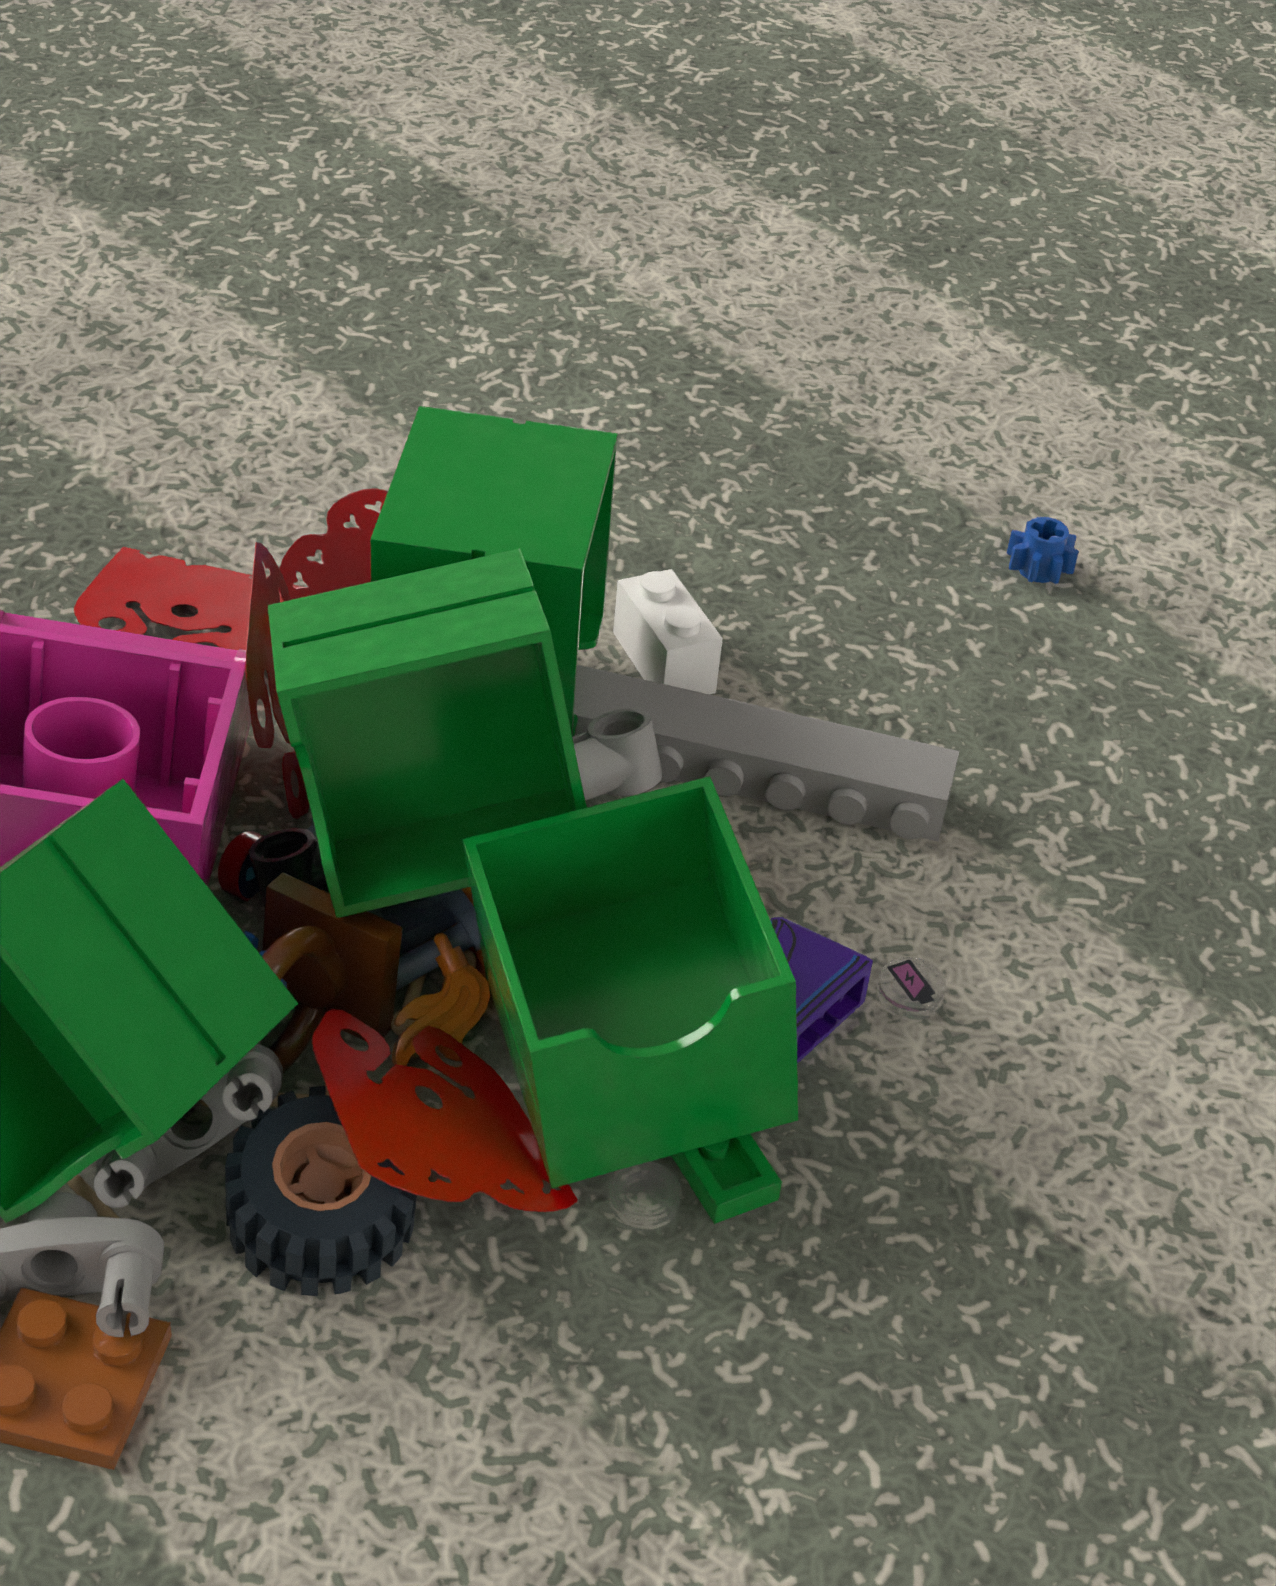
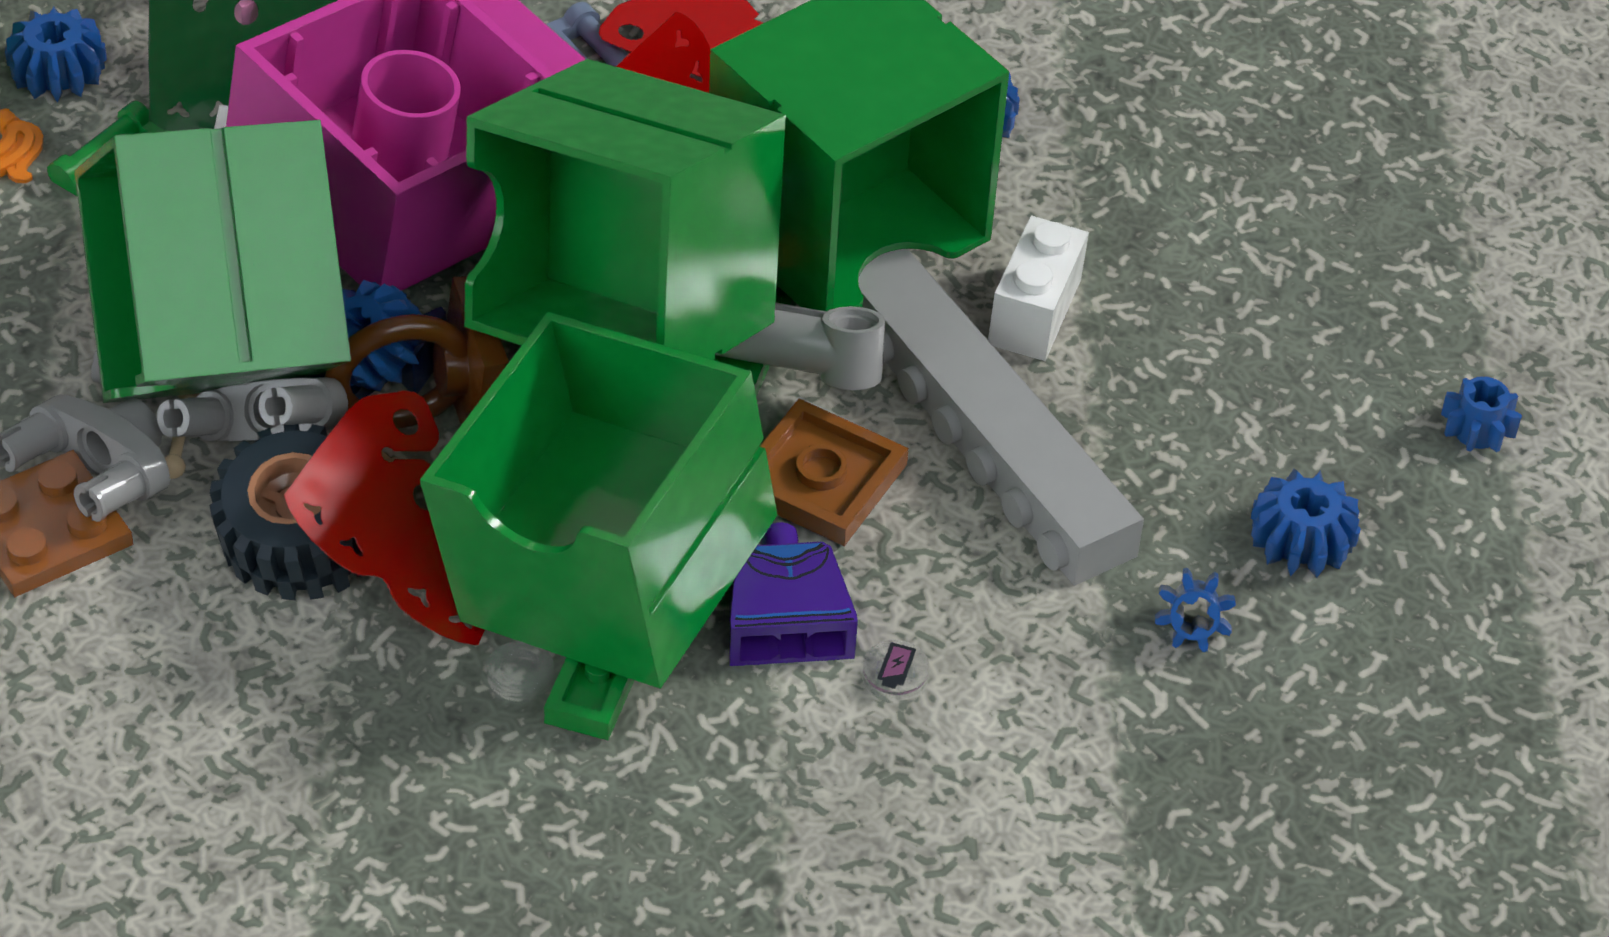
camera: 45 degrees right, 5 degrees up
(1037, 691) = (1305, 522): none -> blue gear
(1054, 797) = (1200, 627): none -> blue gear

